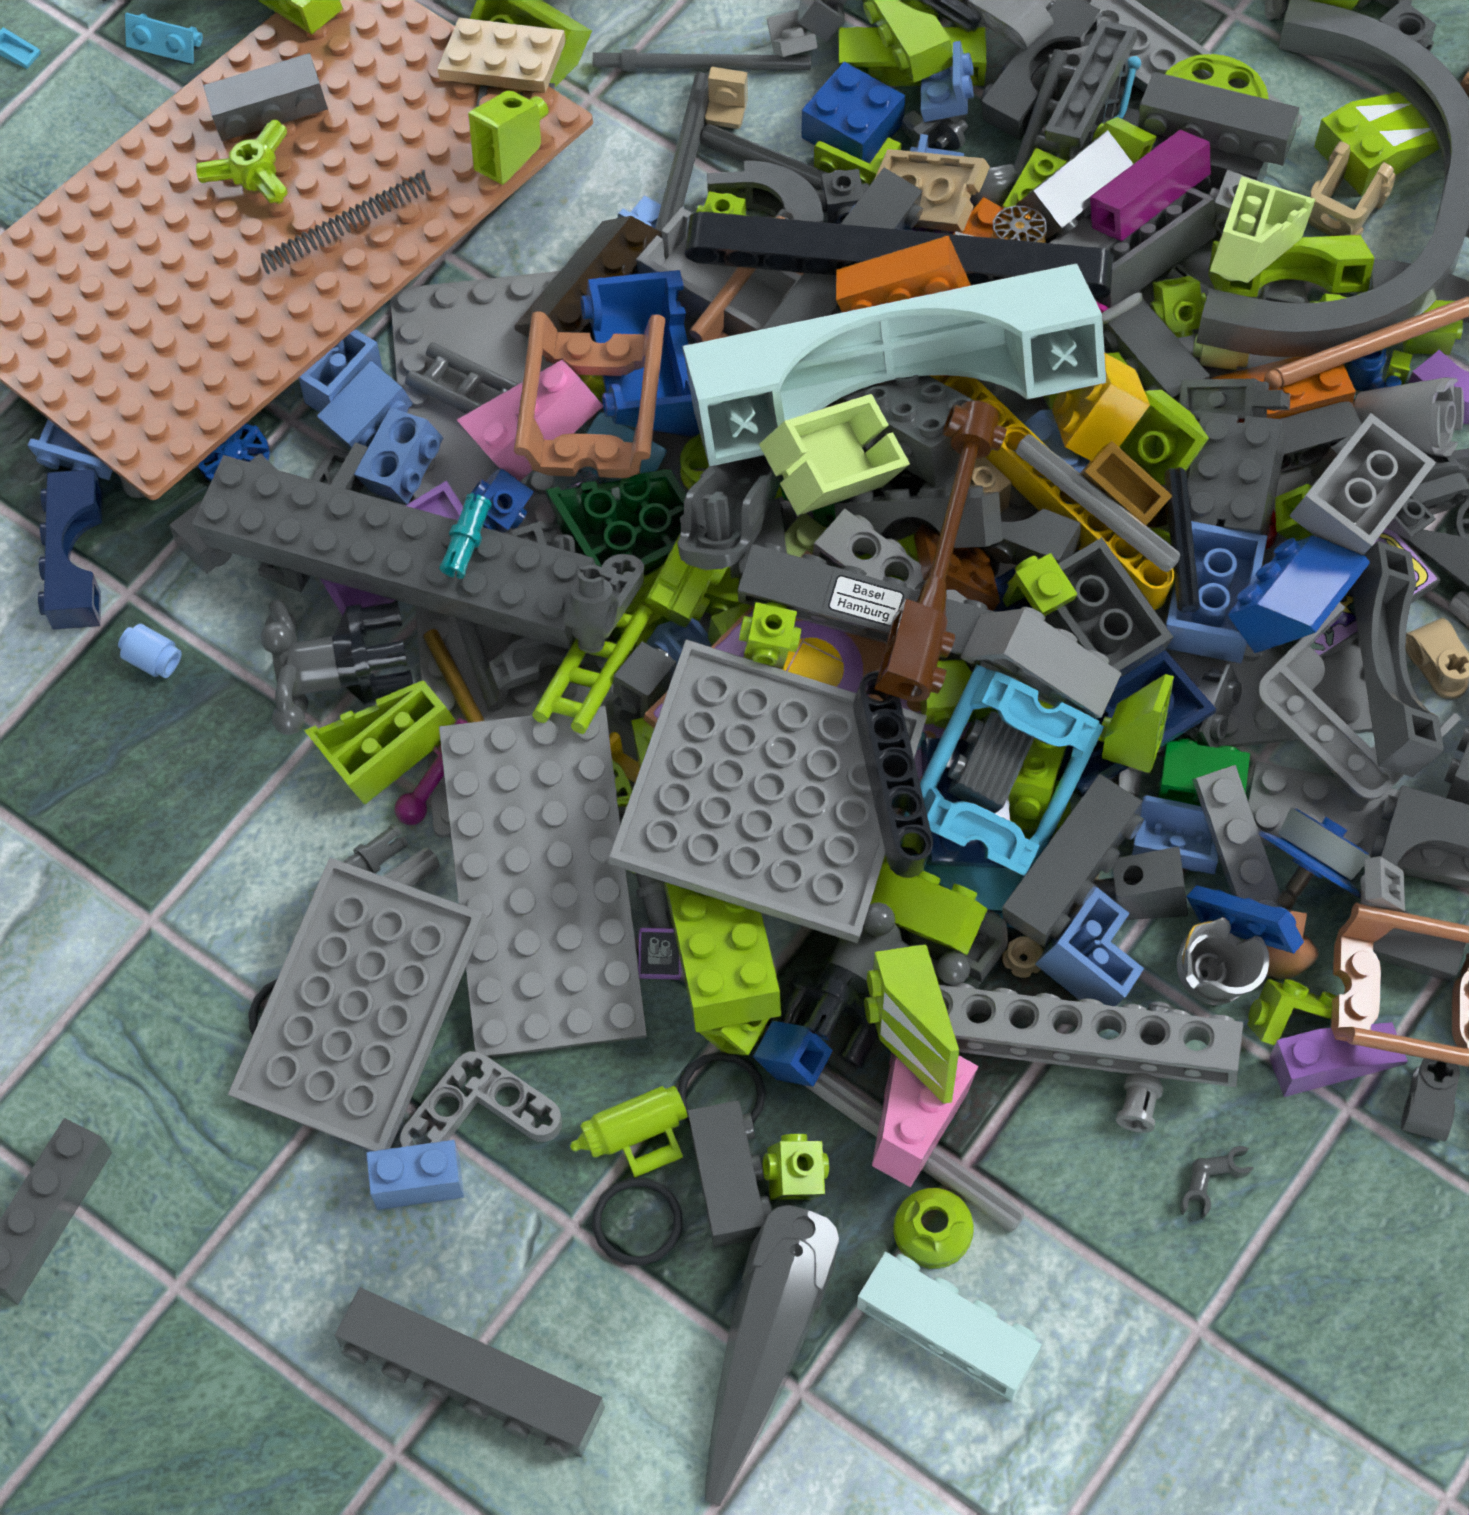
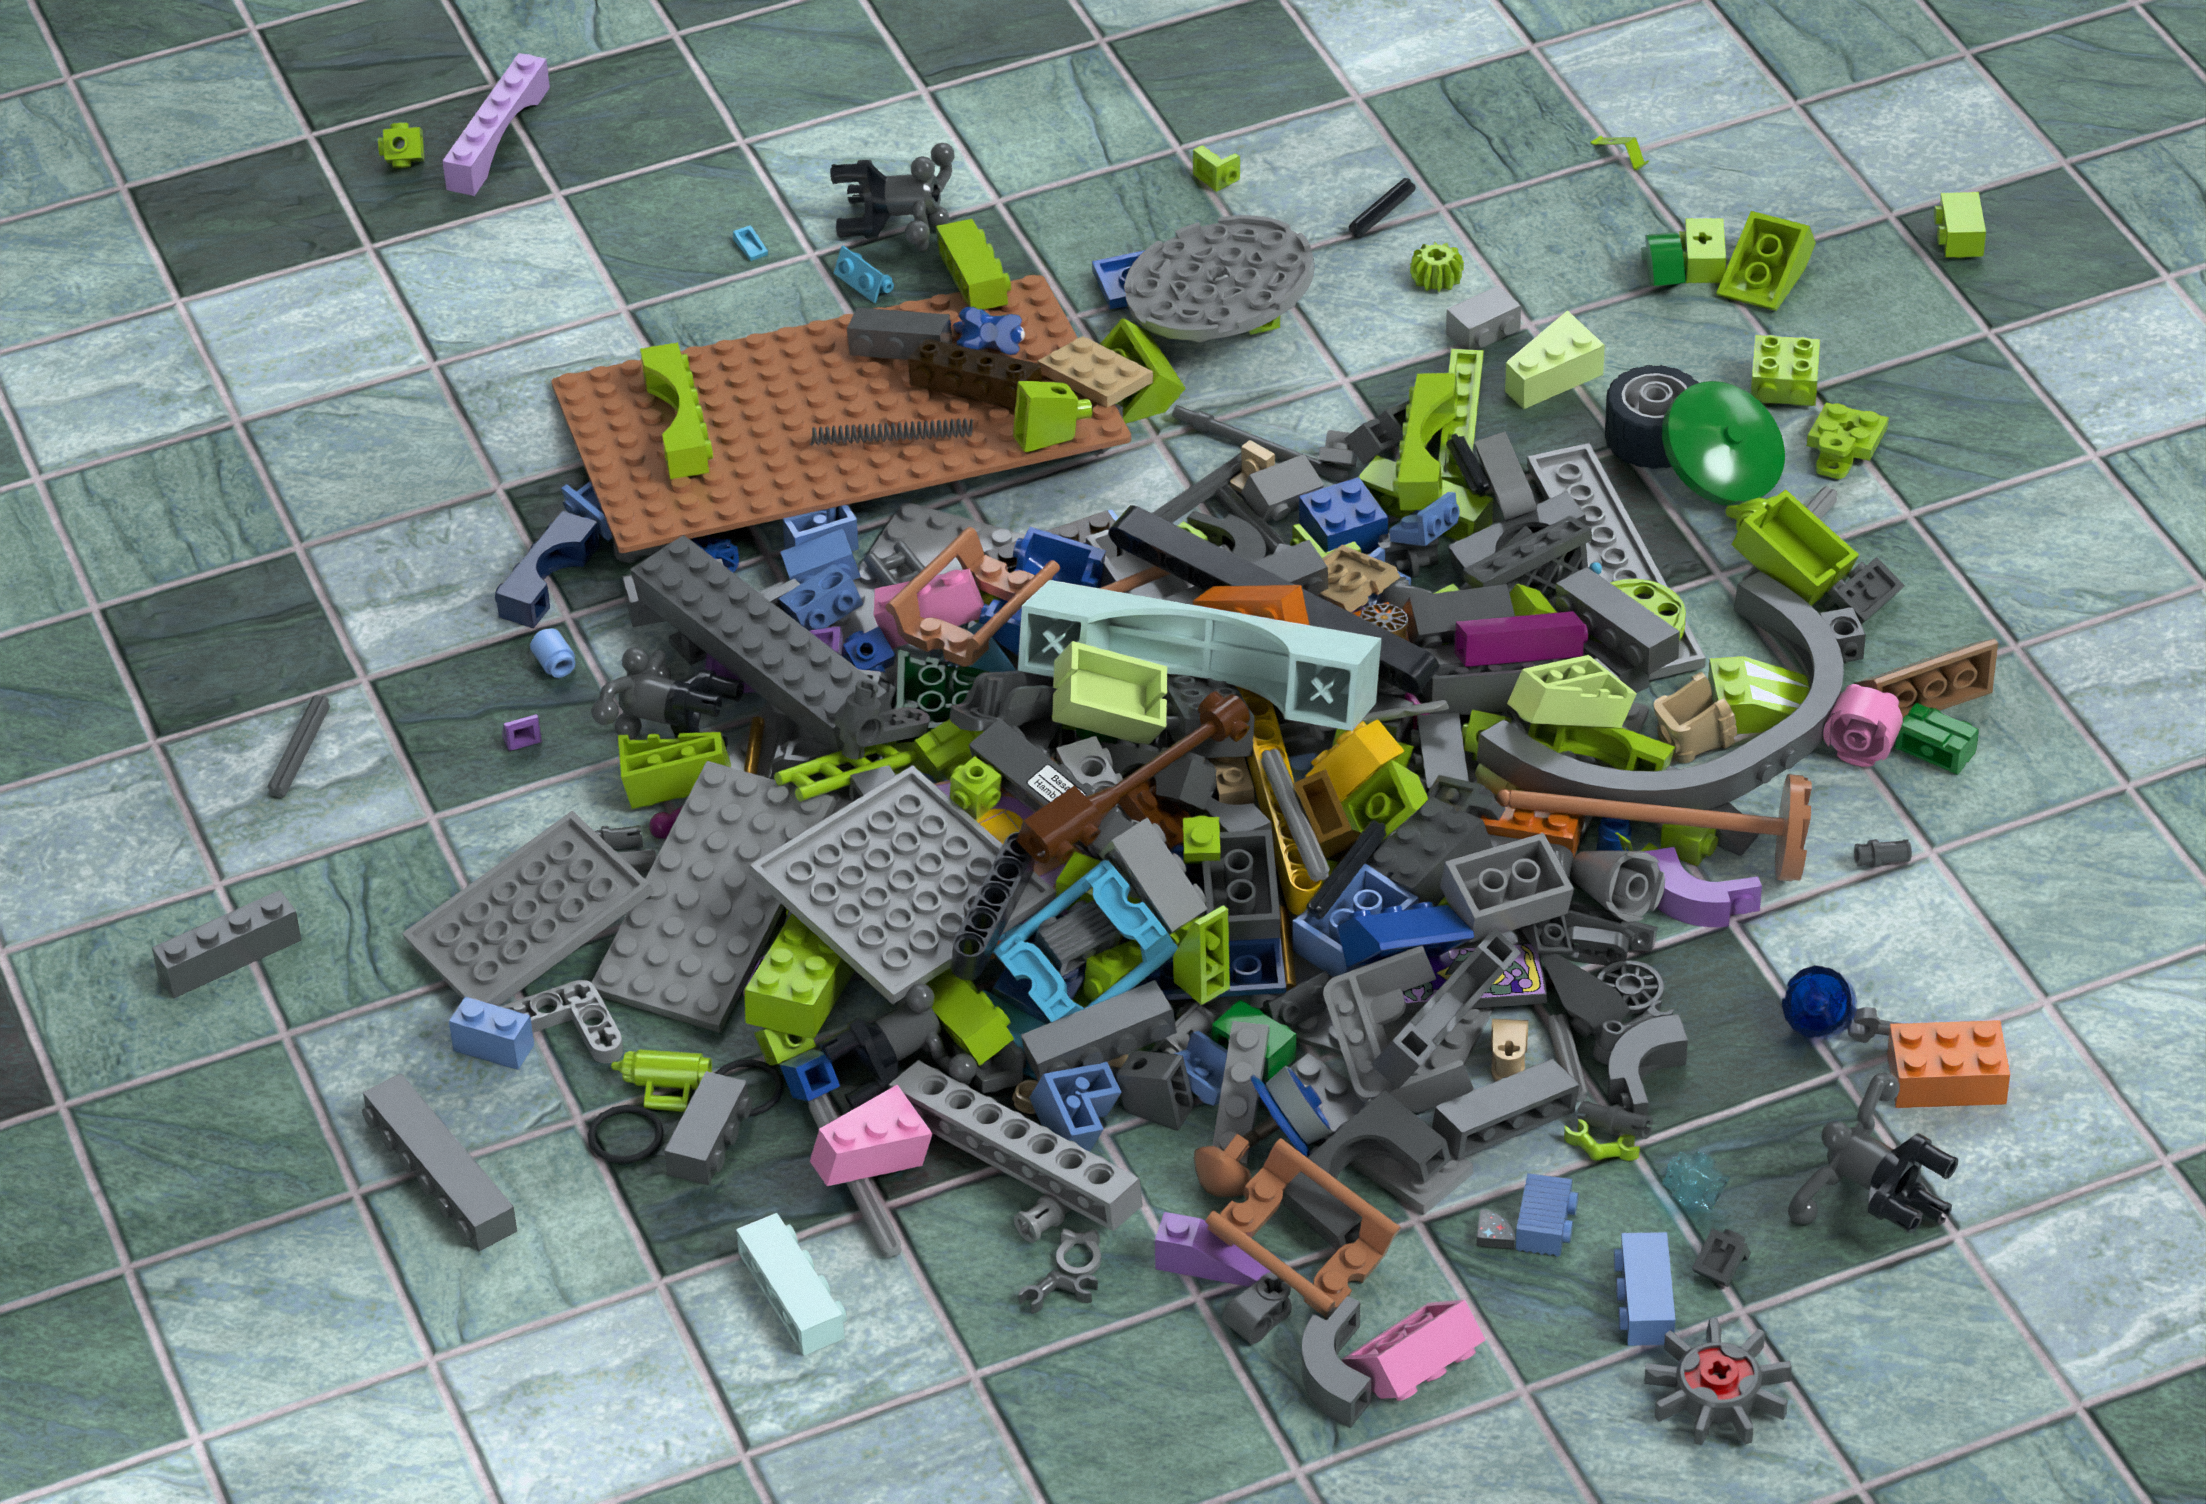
camera: 30 degrees right, 20 degrees down
(51, 256) = (686, 439): none -> lime arch
(183, 769) = (521, 732): none -> medium lavender slope
(251, 164) = (853, 370): lime bush -> none
(355, 56) = (985, 331): none -> blue animal
(385, 113) = (970, 372): none -> dark brown brick
(465, 536) = (805, 639): teal pin -> none
(770, 1321) = (661, 1229): dark grey piece -> none
(771, 105) = (1277, 489): none -> light grey brick
(795, 1168) = (756, 1143): lime brick -> none
(913, 1017) = (899, 1060): lime slope -> none
(929, 1248) = (833, 1238): lime piece -> none
(1202, 1100) = (1068, 1239): none -> light grey piece
(1226, 963) = (1161, 1152): light grey helmet -> none
(1247, 918) = (1202, 1127): blue plate -> none
(1275, 1004) = (1178, 1200): lime bracket -> none
(1382, 885) = (1312, 1136): light grey bracket -> none

